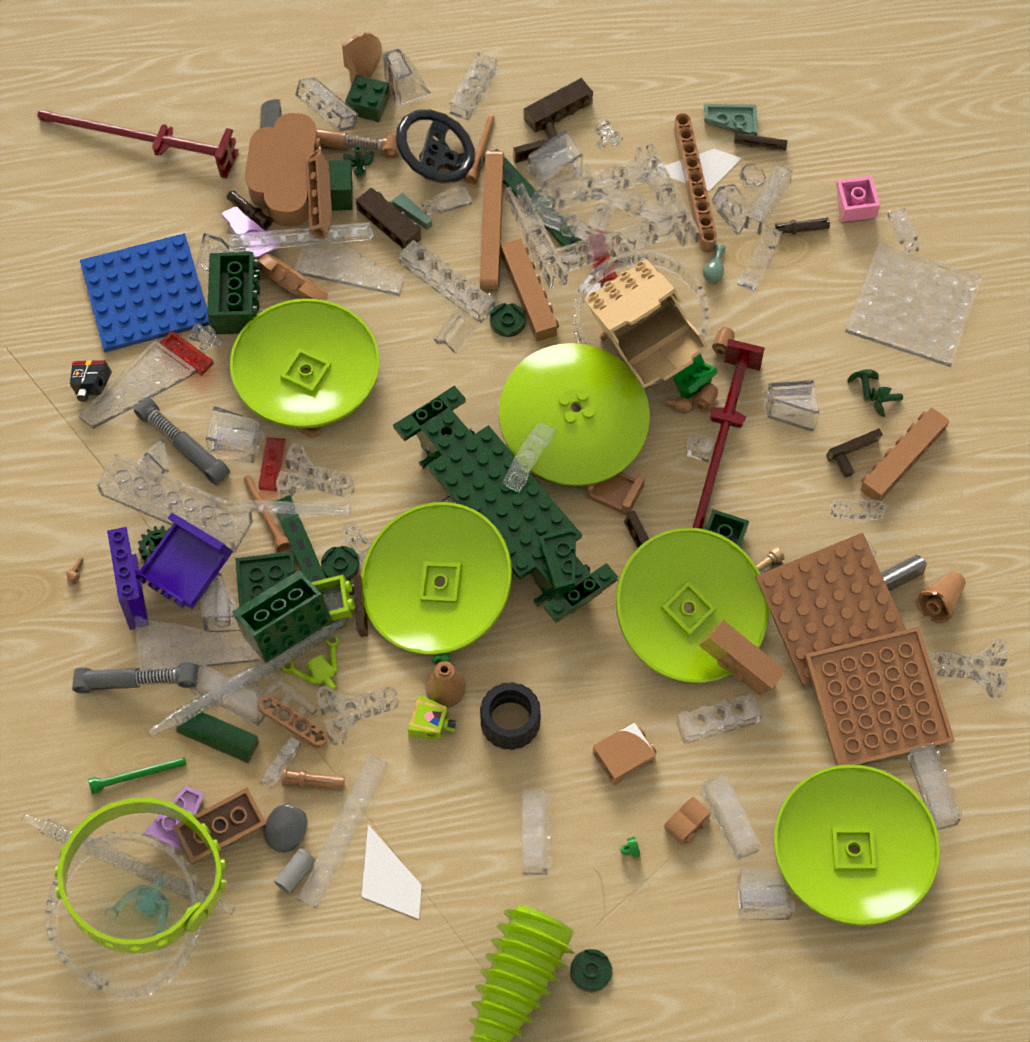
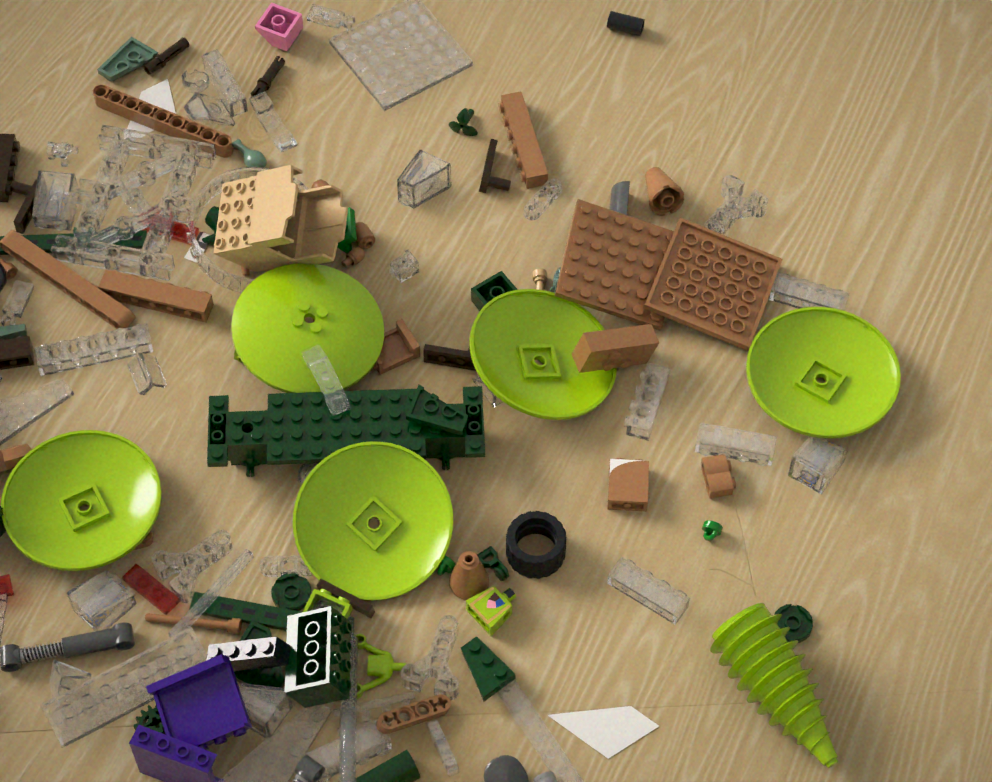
camera: 55 degrees left, 5 degrees down
(249, 565) = (253, 653): none -> black brick
(338, 782) = (468, 739): medium nougat pin -> none
(372, 750) = (486, 668): none -> dark green wing
(470, 706) = (500, 571): none -> dark green piece
(507, 319) = (168, 329): dark green tile -> none
(743, 356) = (354, 185): dark red piece -> none
(863, 375) = (435, 121): dark green plant -> none

